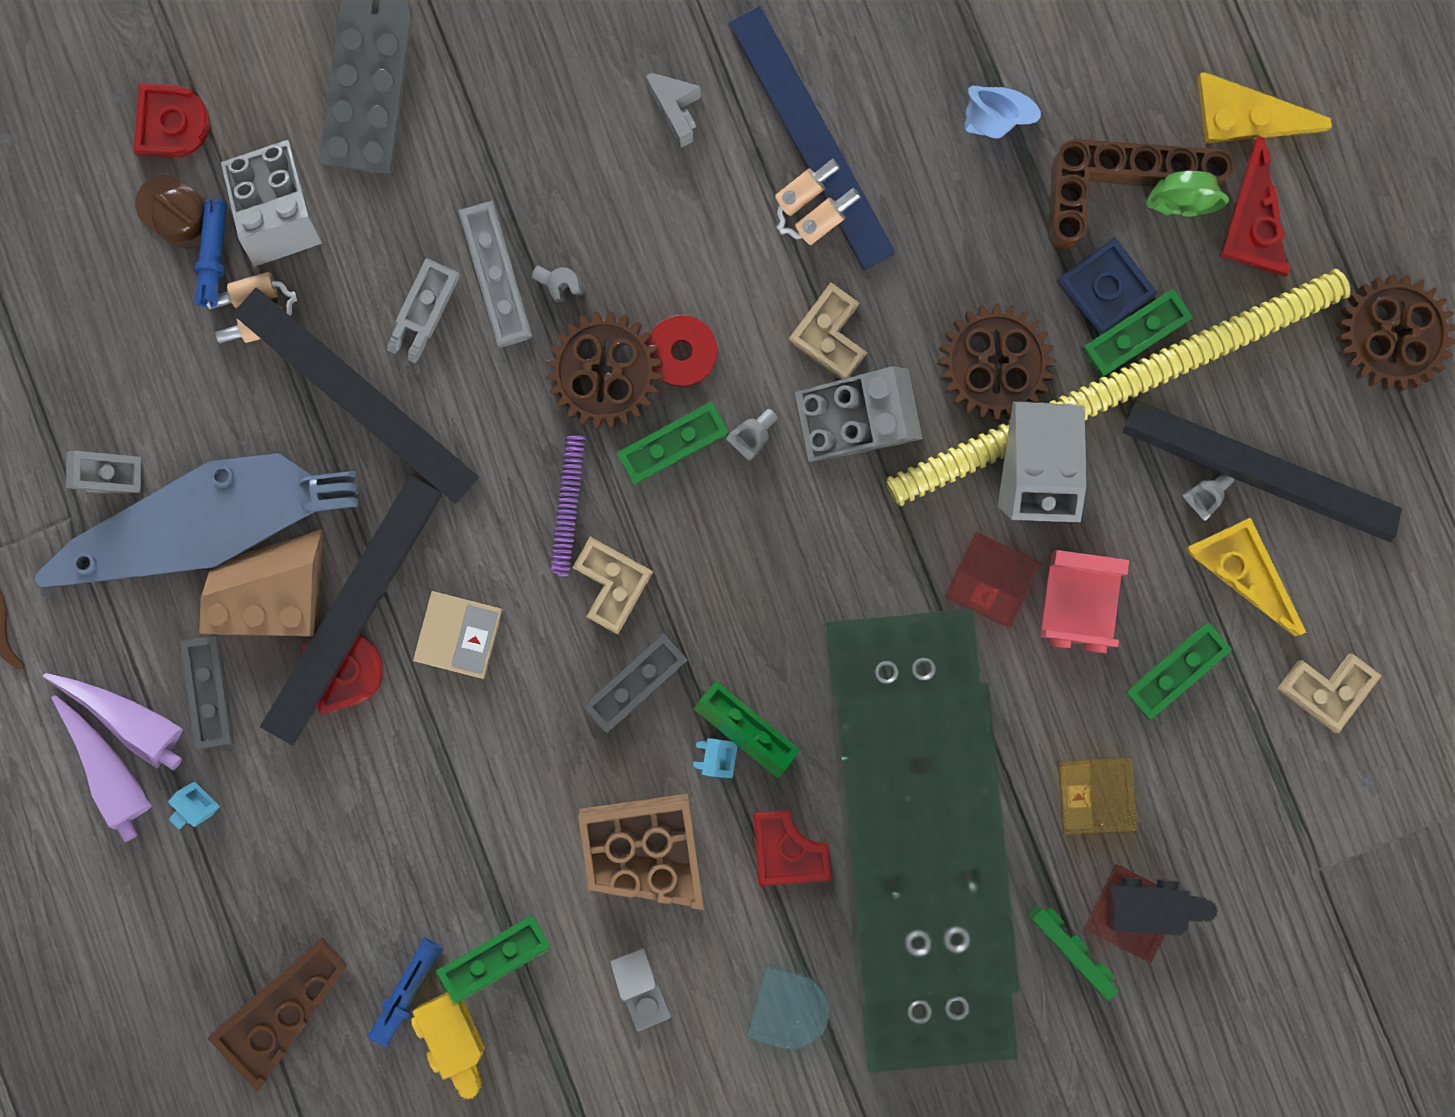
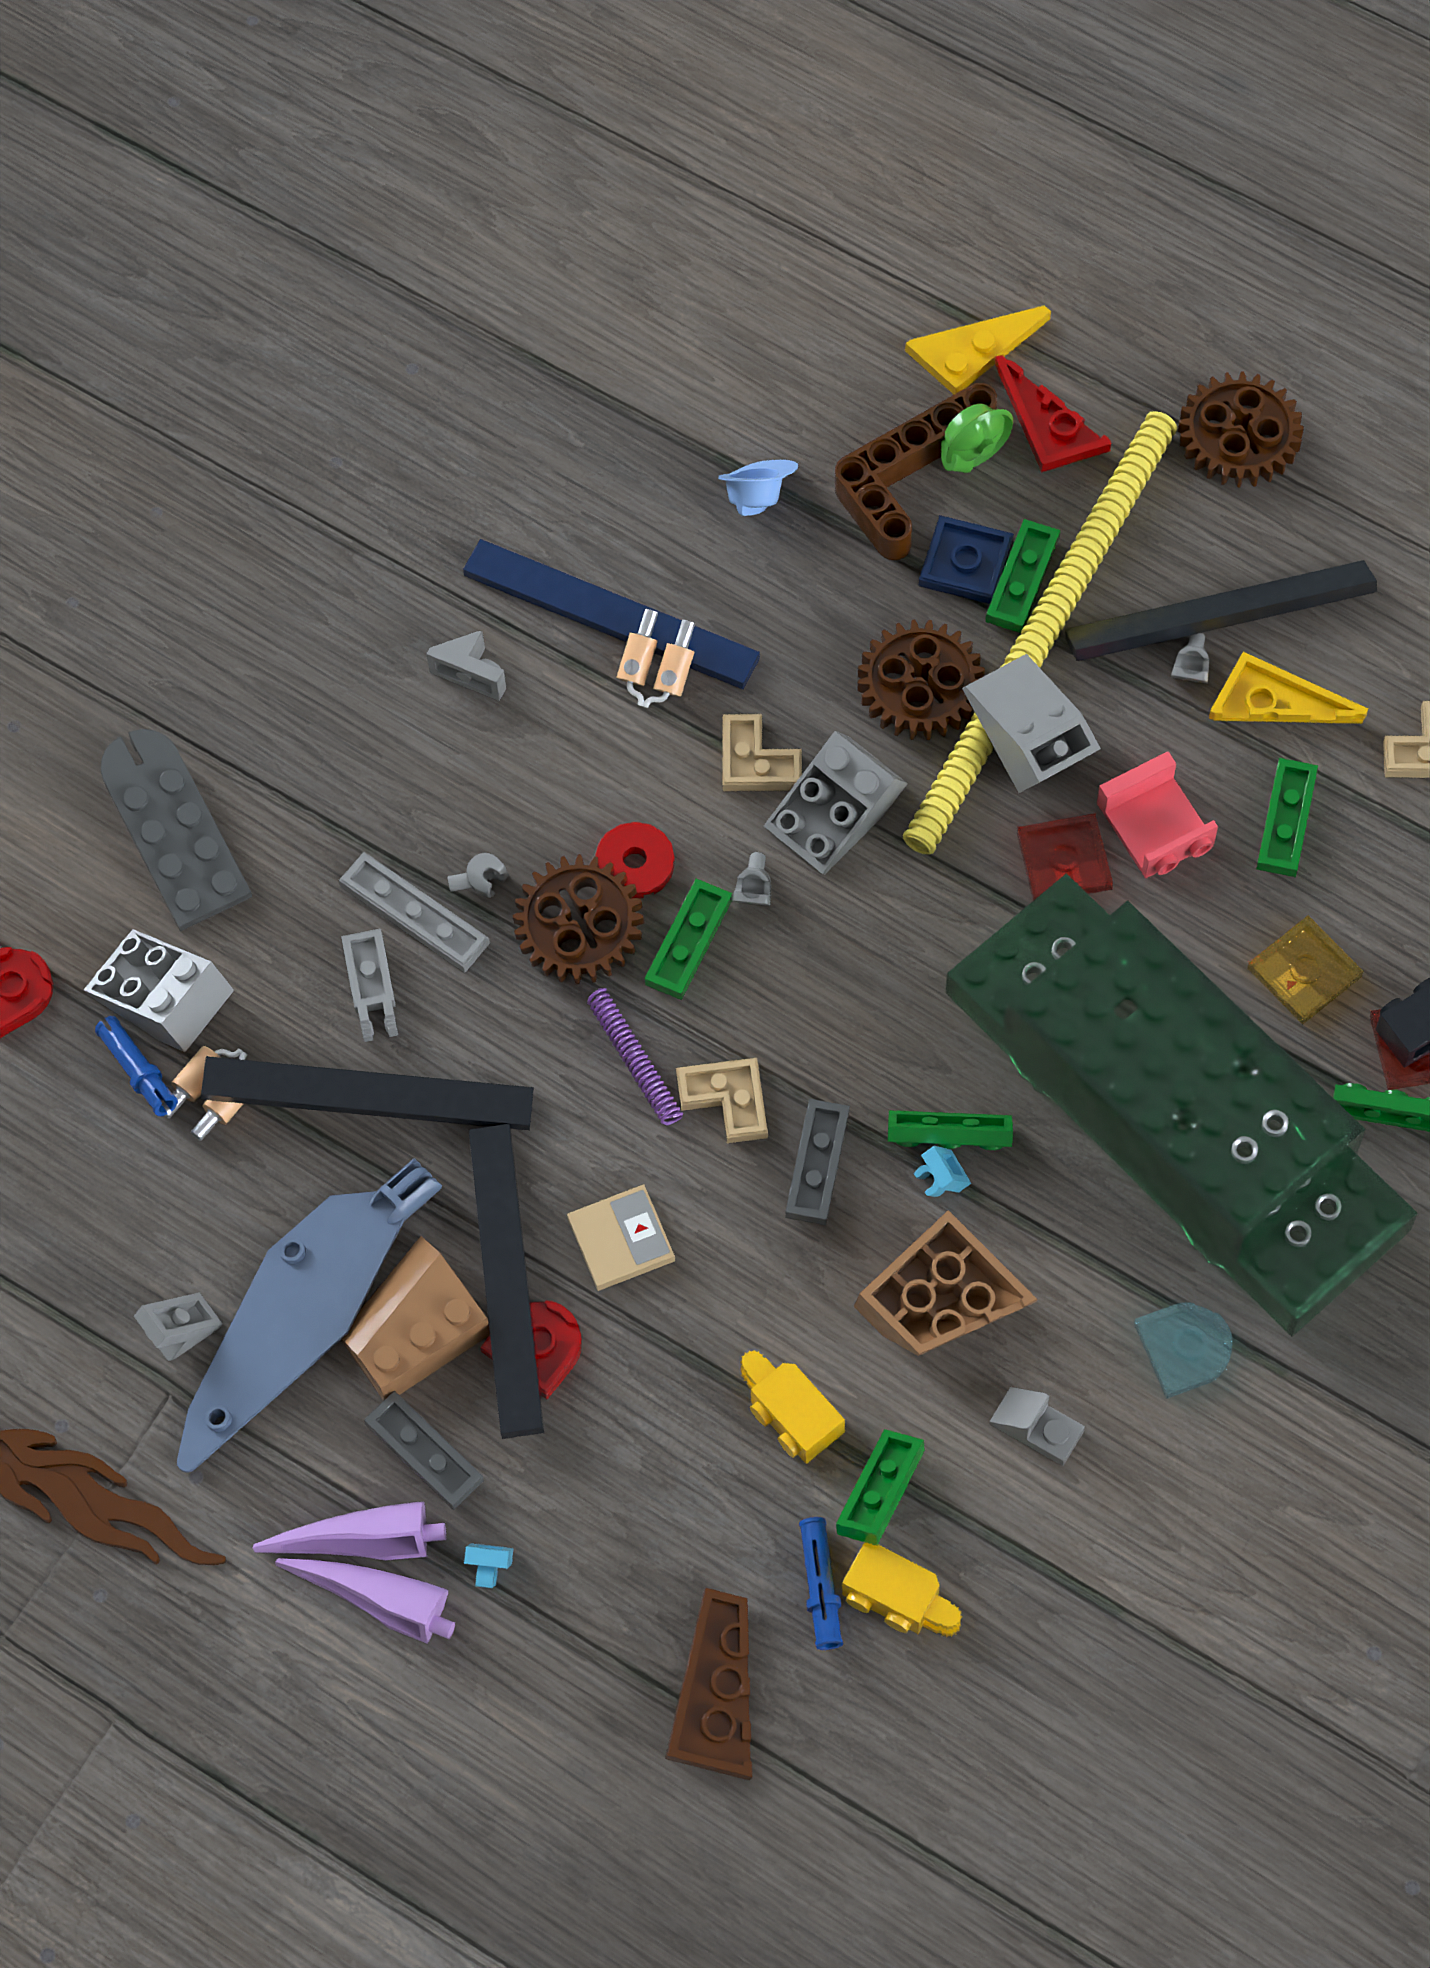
camera: 30 degrees left, 20 degrees down
(171, 210) = (69, 1061): reddish brown piece -> none
(479, 851) = (791, 1406): none -> yellow hinge
(786, 854) = (1072, 1213): red tile -> none

